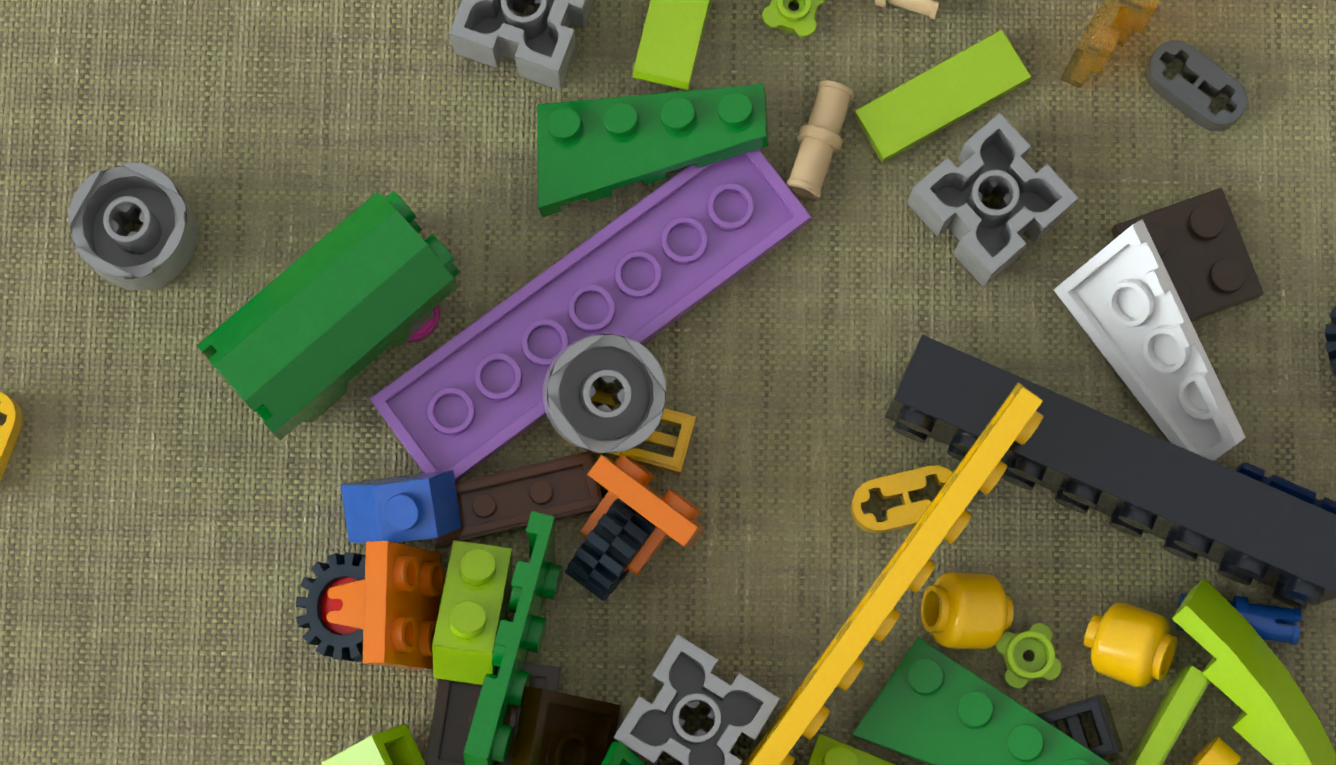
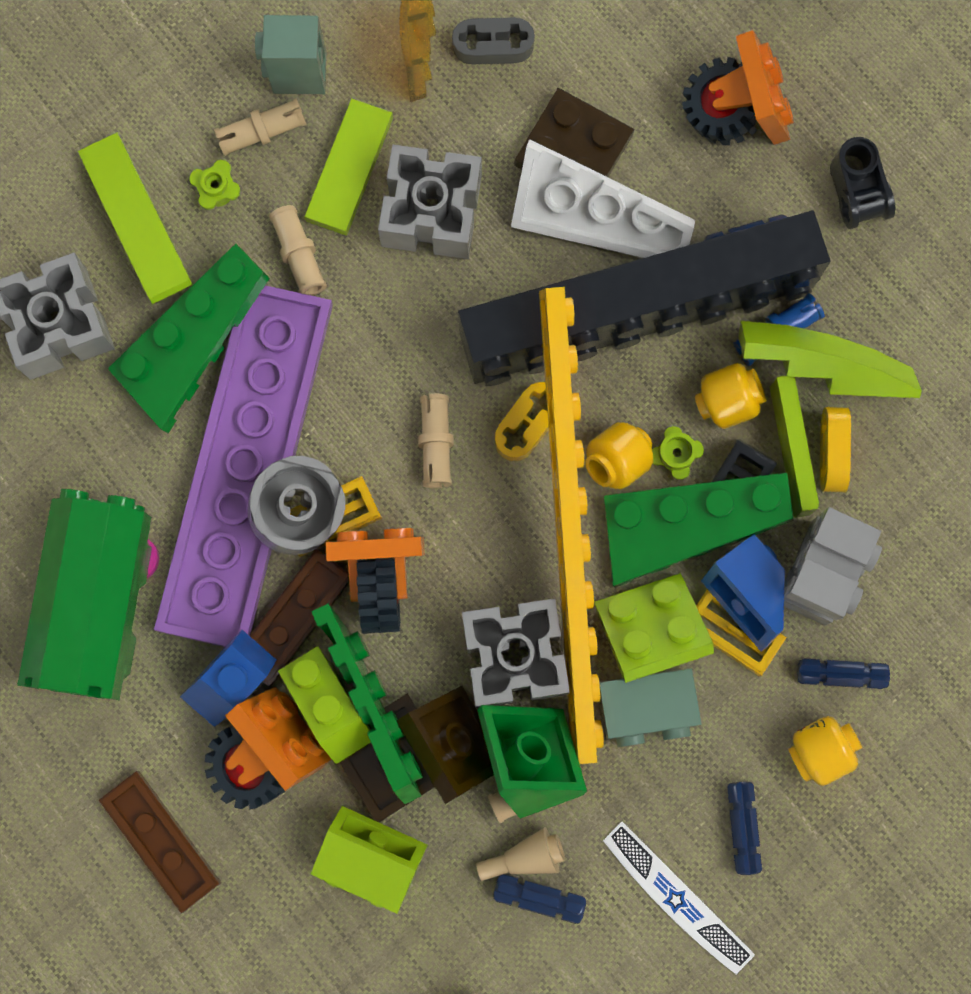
camera: 40 degrees left, 0 degrees up
(206, 608) = (160, 841): none -> reddish brown tile
(797, 442) = (435, 441): none -> tan pin

